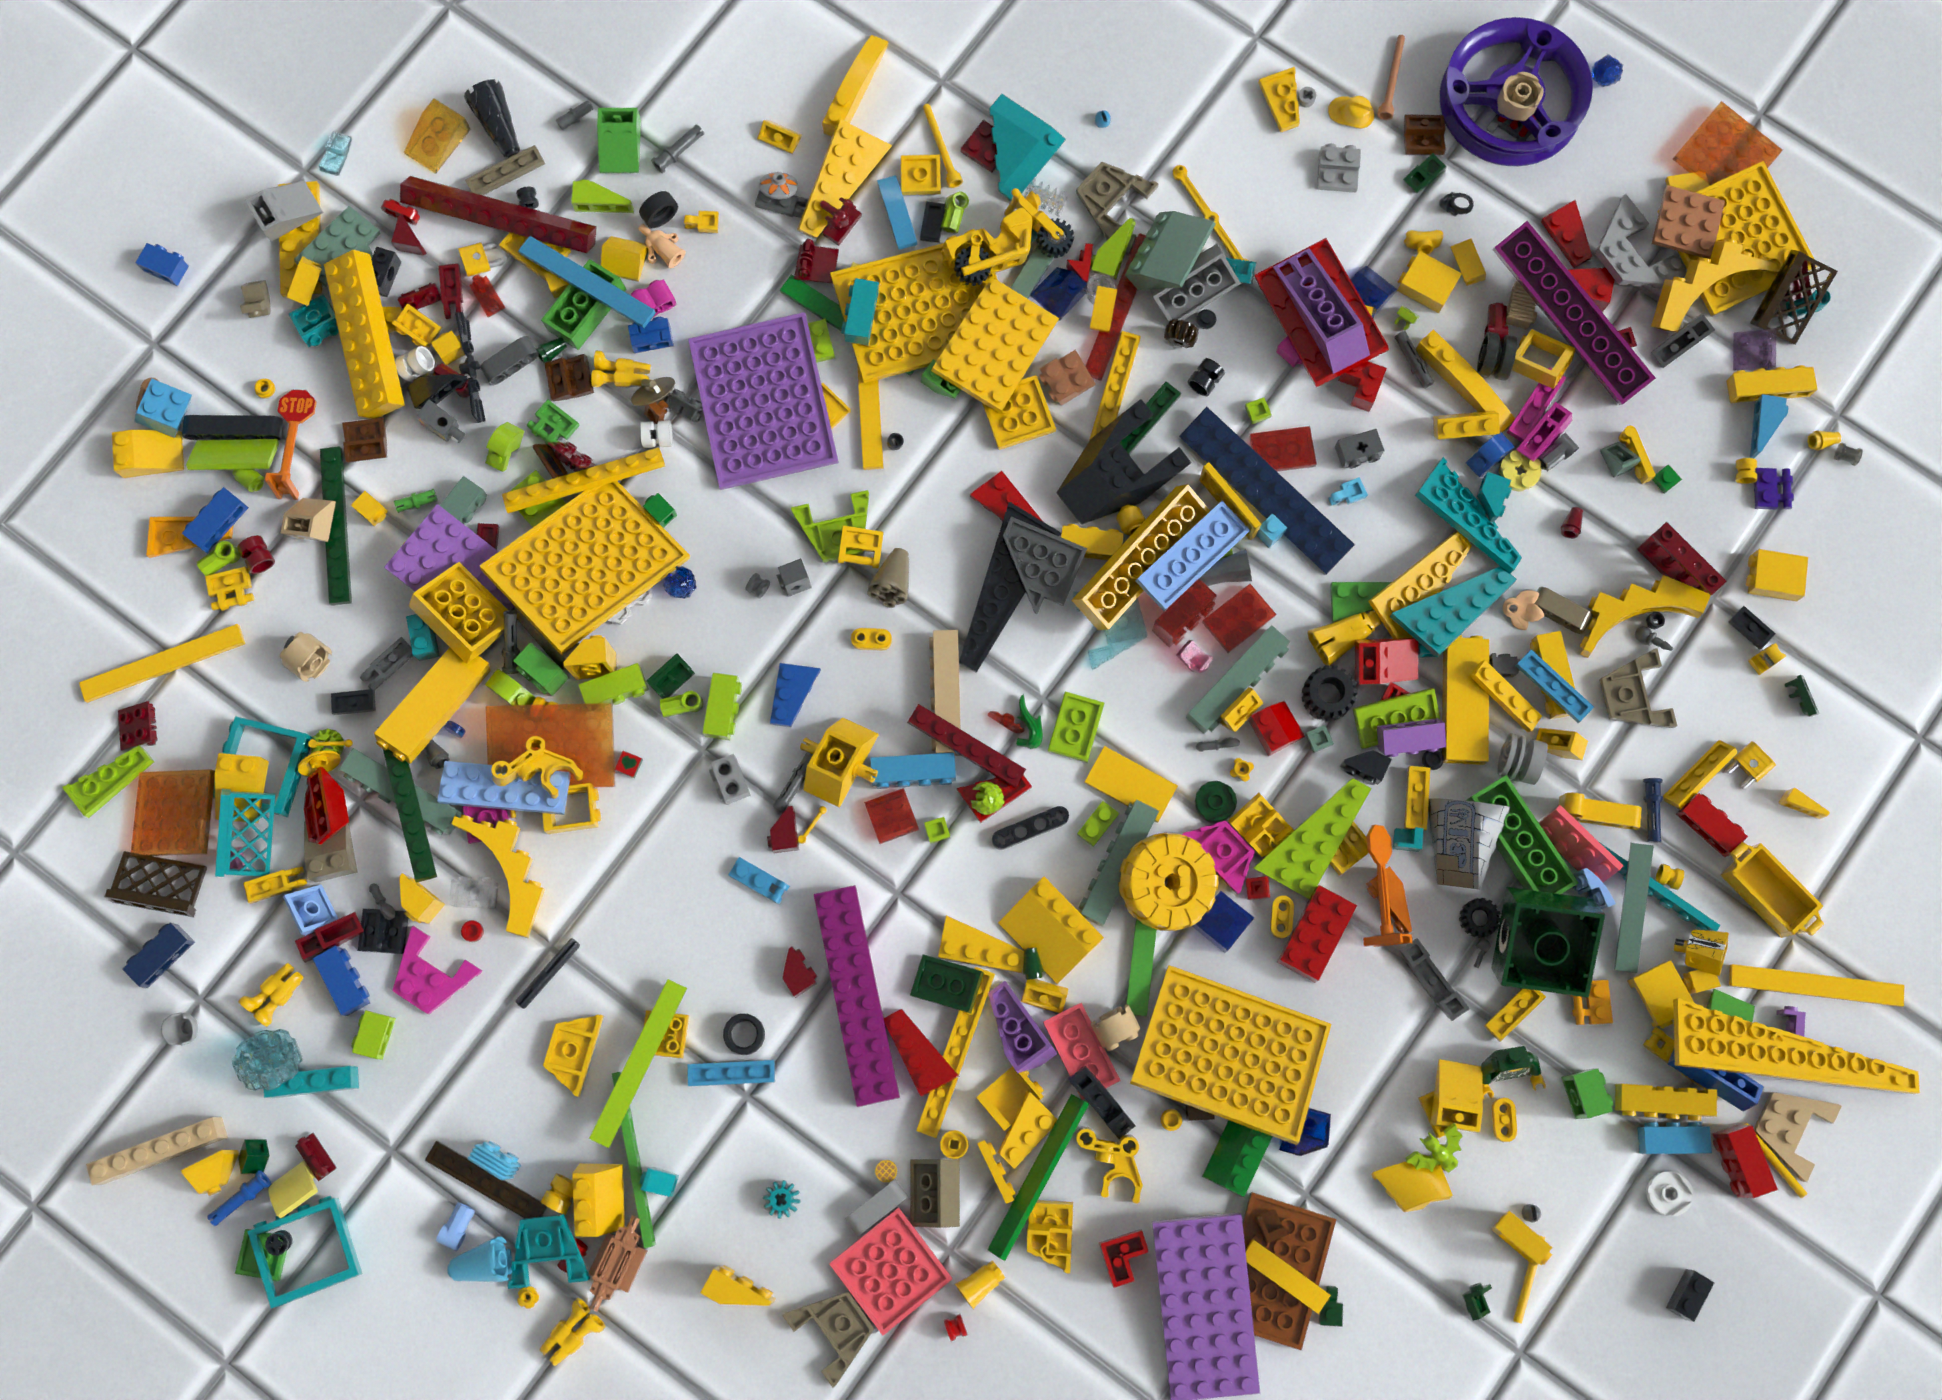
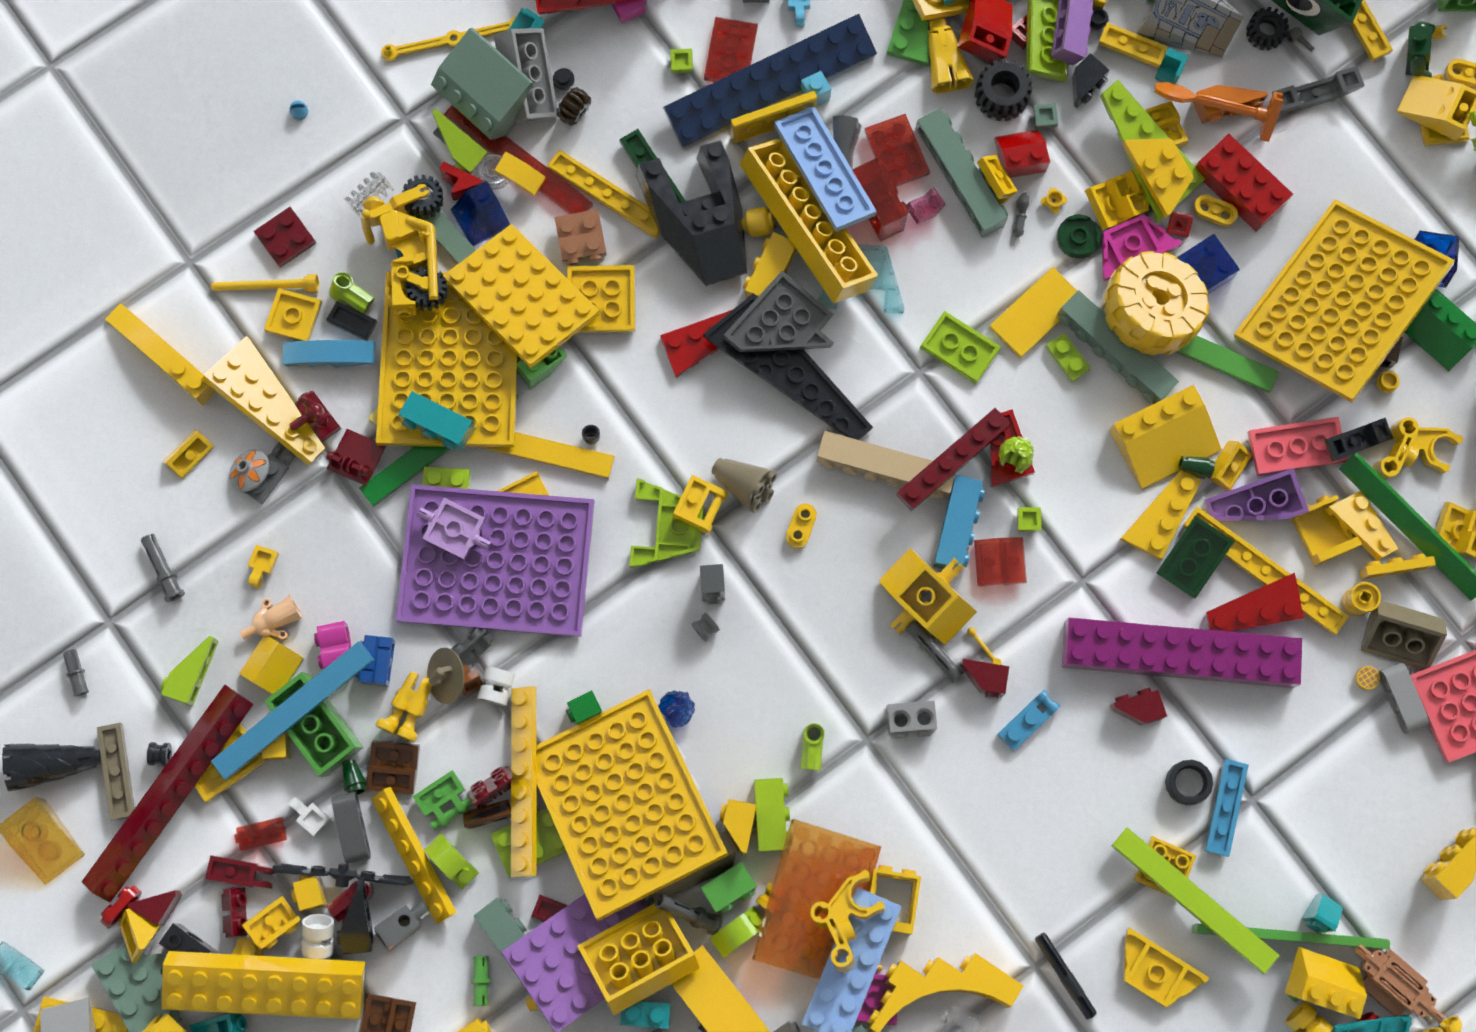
camera: 75 degrees left, 0 degrees up
(380, 231) = (137, 933): none -> yellow slope
(455, 729) = (763, 1005): clear blue tile -> none
(475, 259) = (211, 835): yellow piece -> none
(506, 410) = (413, 855): none -> yellow plate
(510, 328) = (310, 817): none -> white plate
(618, 140) = (128, 630): bright green slope -> none
(628, 764) = (860, 824): tile -> none
(658, 209) = (231, 608): black tyre -> none
(670, 676) = (777, 750): dark green hinge -> none
(722, 706) = (828, 703): lime brick -> none
(774, 1200) = (1380, 791): teal gear -> none
(776, 356) = (454, 528): none -> lavender plate
(791, 690) = (832, 626): blue wing -> none
(1007, 721) = (932, 414): clear red piece -> none
(1022, 144) = (301, 197): teal slope -> none
(1028, 824) = (1053, 425): black beam -> none
(1034, 726) = (948, 387): green piece -> none
(1105, 188) = (381, 132): dark tan wing -> none
(1116, 1027) = (1286, 402): tan brick -> none
(1204, 379) = (631, 100): black wheel -> none
(1299, 853) = (1161, 170): none -> yellow wing

